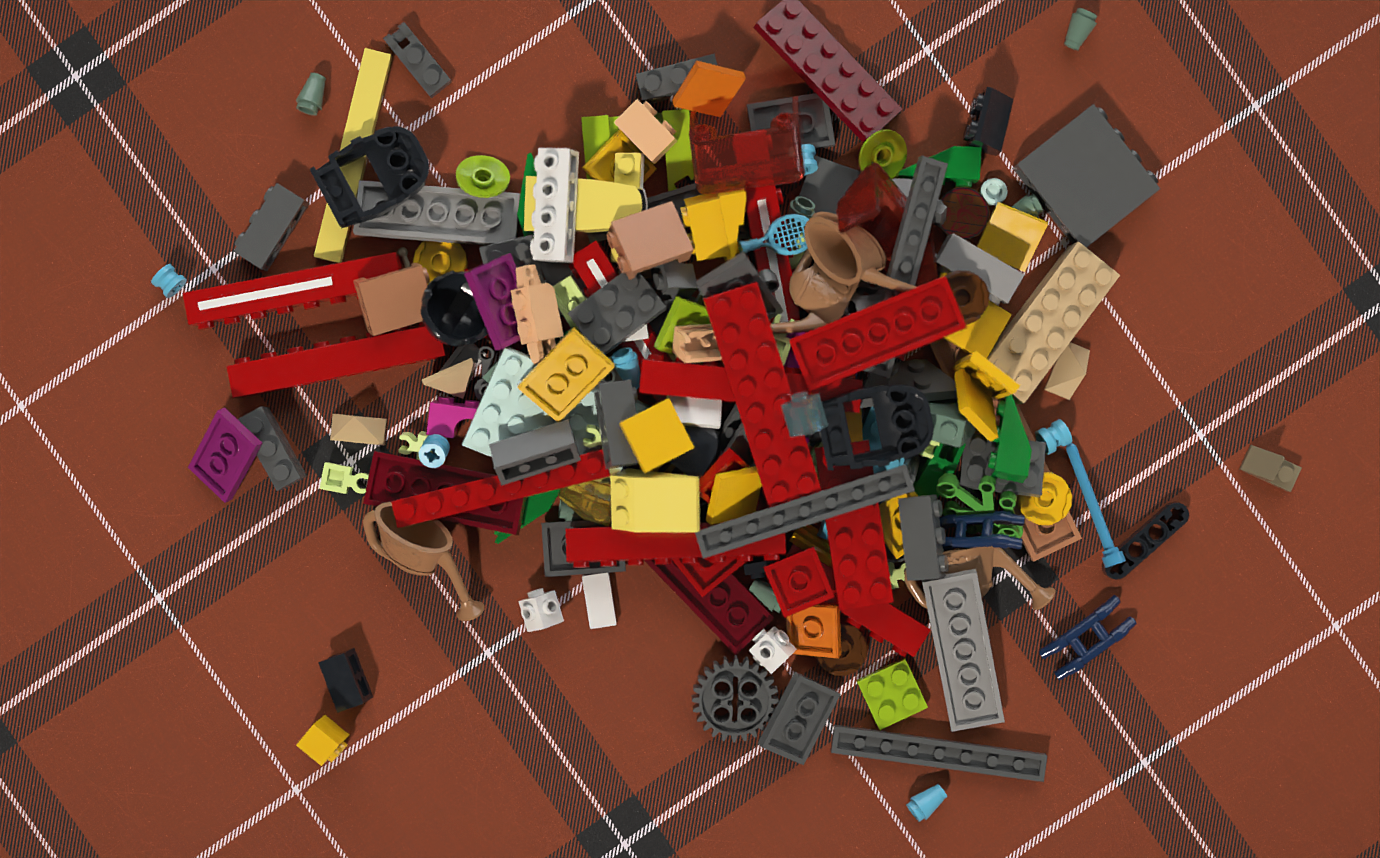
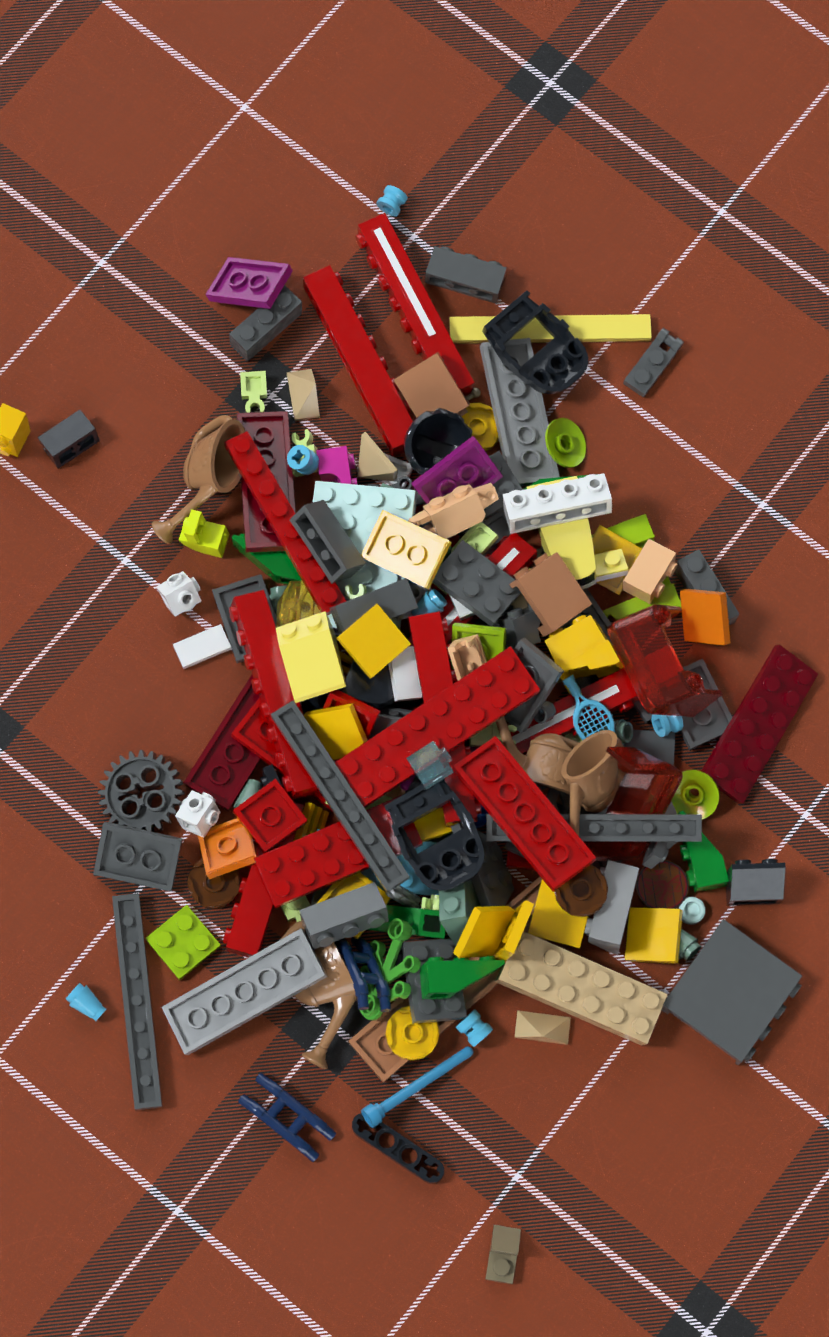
camera: 65 degrees right, 15 degrees down
(311, 95) = (593, 280): sand green cone -> none
(486, 570) = (204, 535): none -> neon yellow brick

